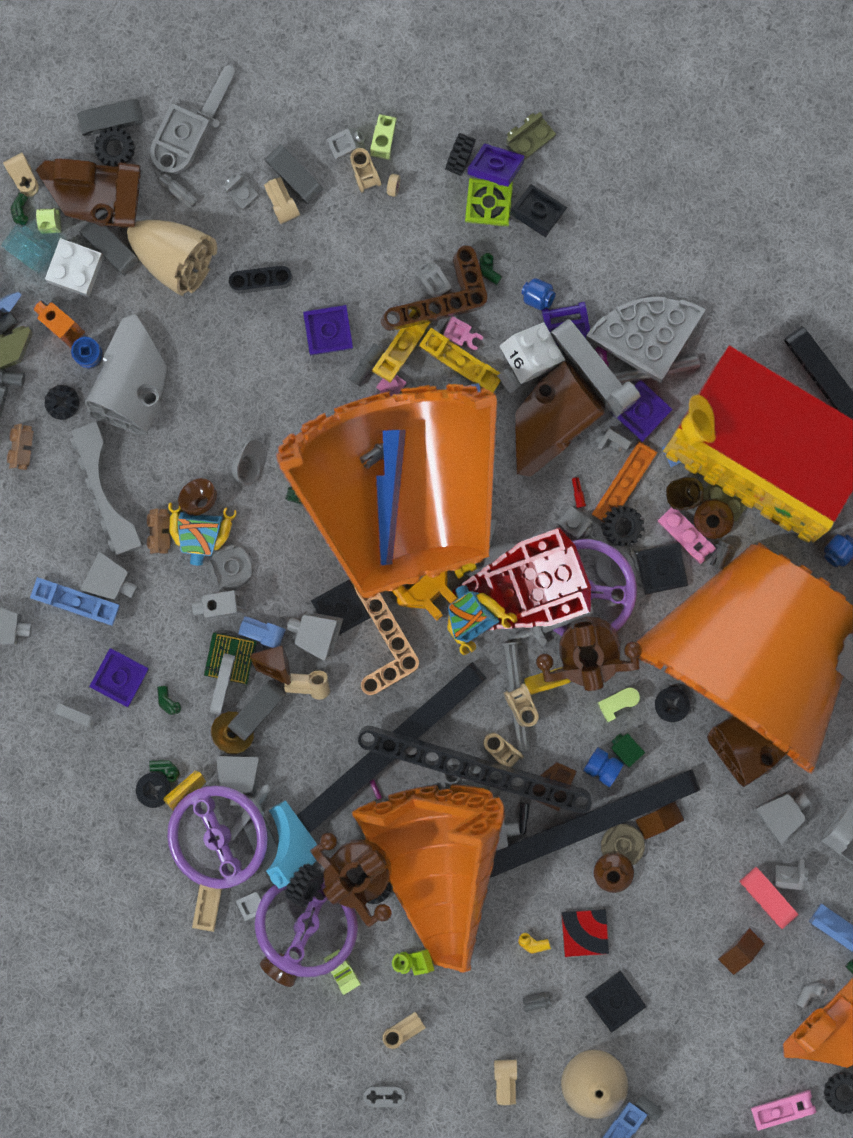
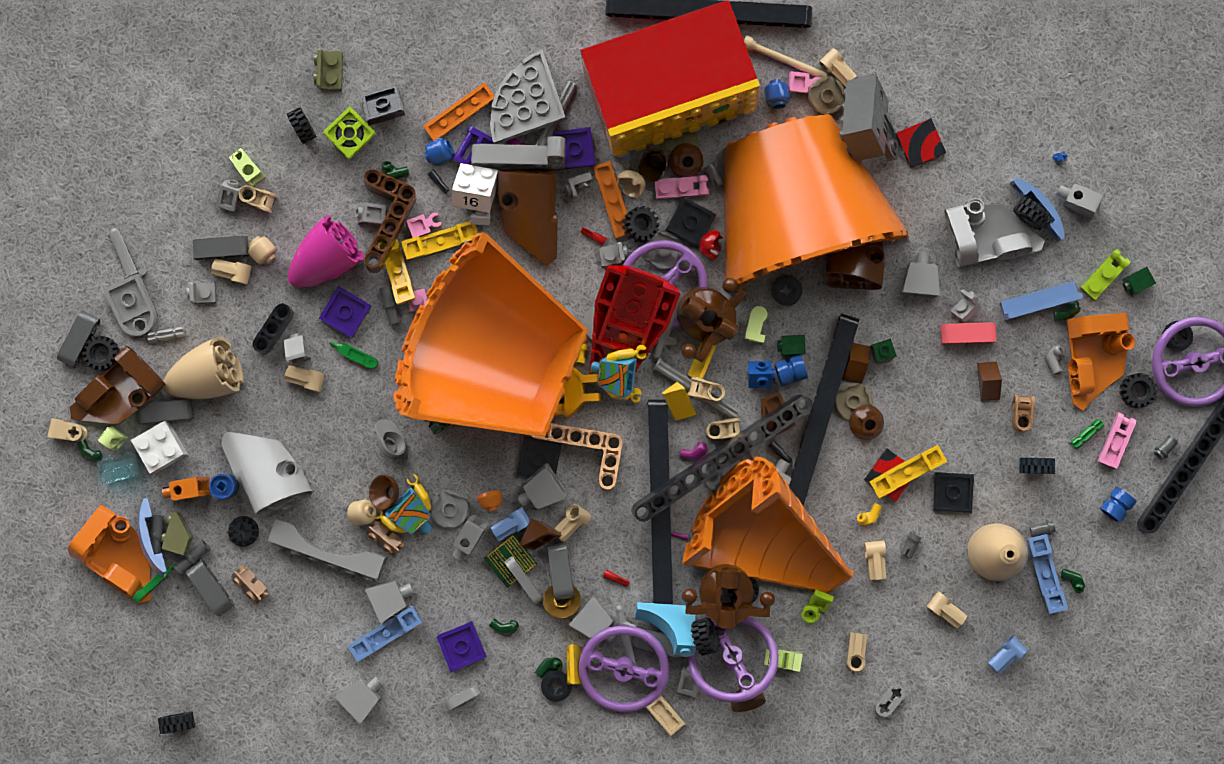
camera: 50 degrees left, 0 degrees up
(163, 492) = (361, 512): none -> tan head
(242, 348) = (309, 379): none -> tan piece
(260, 314) = (296, 348): none -> slope
(268, 596) = (490, 500): none -> orange cone
(290, 760) = (614, 578): none -> red pin
(298, 371) = (356, 355): none -> green piece
(321, 212) = (262, 250): none -> tan head
(359, 270) = (322, 256): none -> dark pink cylinder
(374, 455) = (455, 349): dark grey pin -> none
(388, 492) = (488, 360): blue slope -> none
(393, 185) = (284, 187): tan tile -> none
(459, 743) = (696, 453): none -> magenta arm
(492, 690) = (678, 402): none -> yellow slope
(496, 165) = (328, 107): dark purple plate -> none
(501, 978) = (876, 559): none -> tan piece
(512, 314) = (436, 179): none -> black pin
(577, 742) = (760, 374): none -> blue brick
(589, 283) = (459, 112): none -> orange plate
(600, 945) = (908, 471): none -> yellow slope
(653, 488) = (632, 183): none -> tan hair
(654, 603) = (709, 245): none -> red hair
(689, 834) = (883, 351): none -> dark green brick
(699, 422) = (615, 112): yellow piece -> none
(701, 1056) = (1037, 465): none -> black bush
(739, 1003) = (1022, 411): none -> medium nougat piece
(767, 1078) = (1087, 434): none -> green axle

